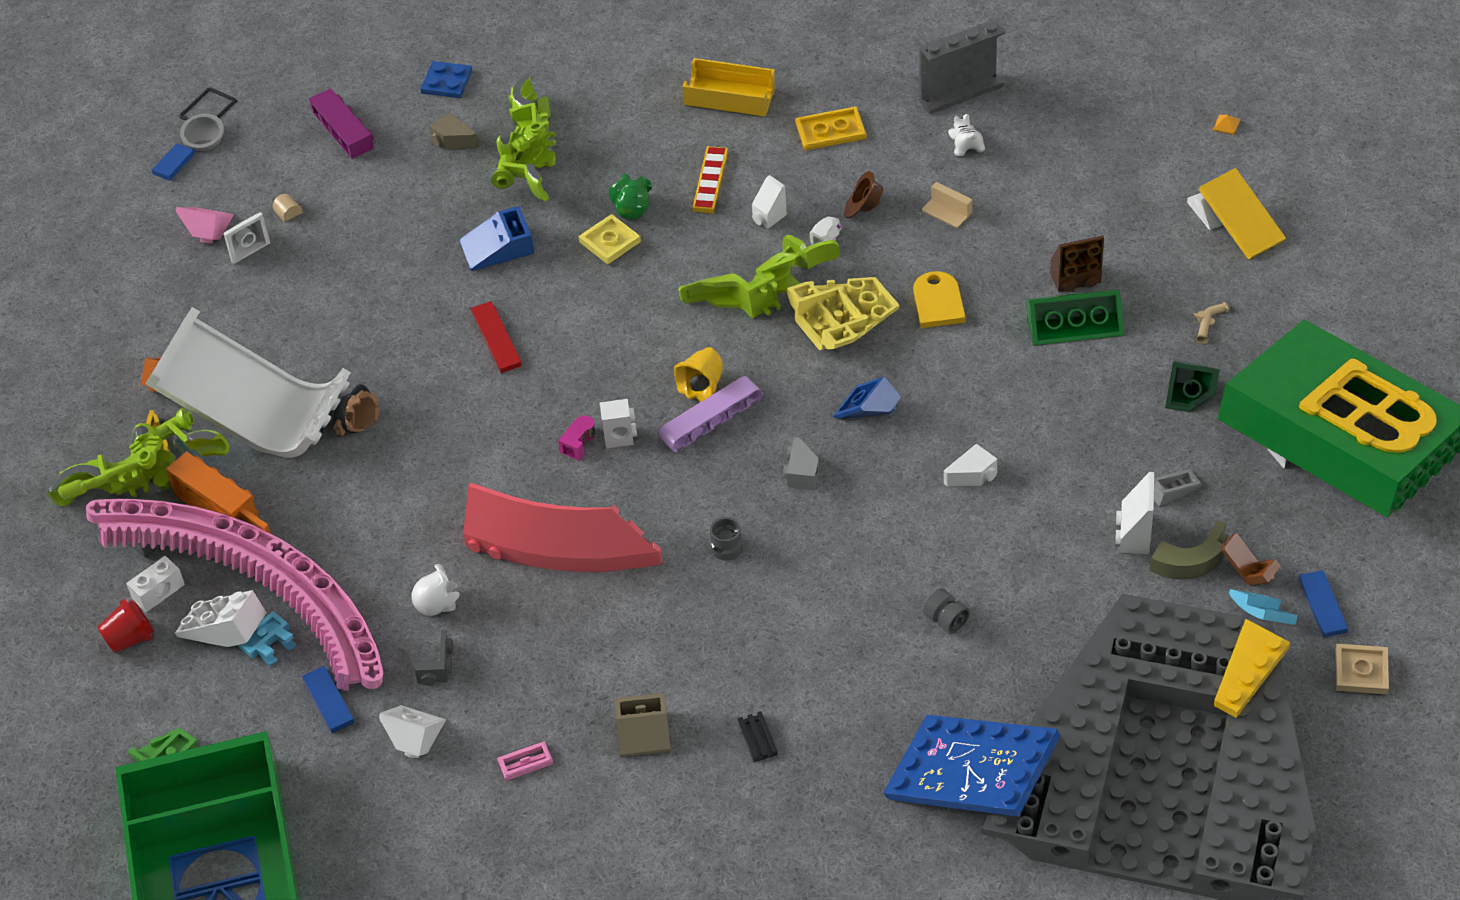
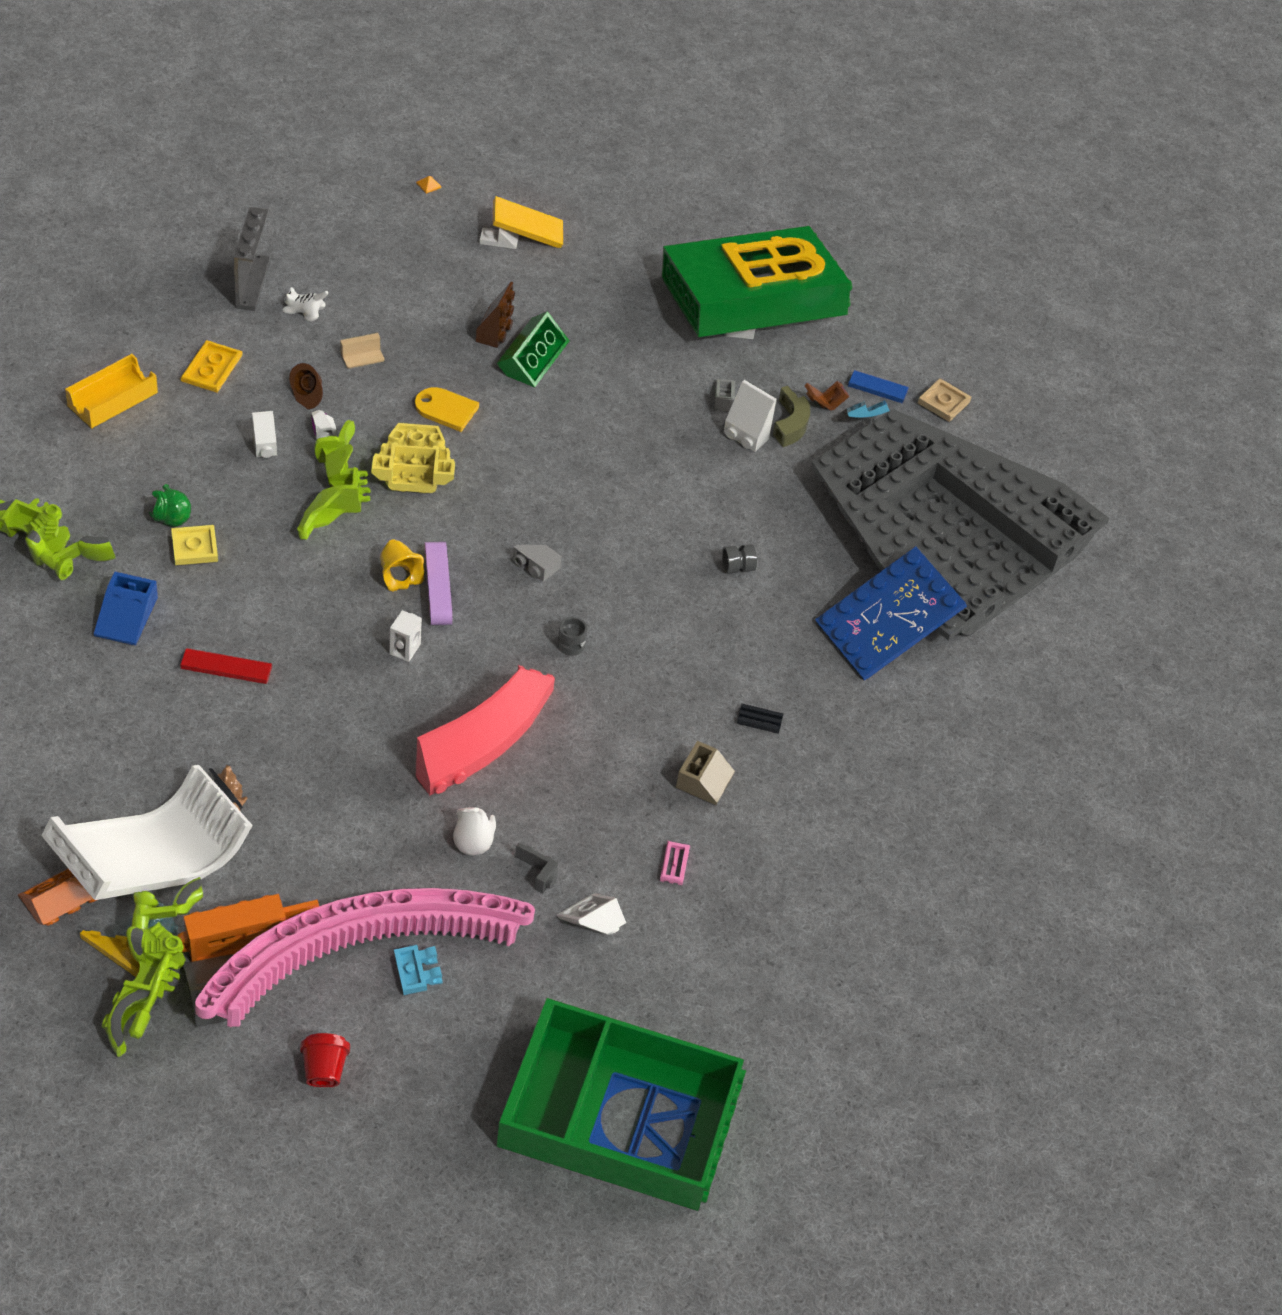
camera: 70 degrees left, 0 degrees up
(155, 584) = (290, 1018): white brick -> none
(172, 742) = (478, 1096): bright green wing -> none
(223, 620) = (373, 989): white slope -> none
(328, 699) = (512, 958): blue tile -> none
(576, 436) = (386, 670): dark pink leg -> none
(710, 179) = (191, 457): tile -> none
(869, 399) = (508, 493): blue slope -> none
(971, 468) = (623, 475): white slope -> none
(1190, 385) = (650, 334): dark green slope -> none
(1206, 320) = (598, 297): tan piece -> none
(1249, 666) = (925, 435): yellow wing -> none

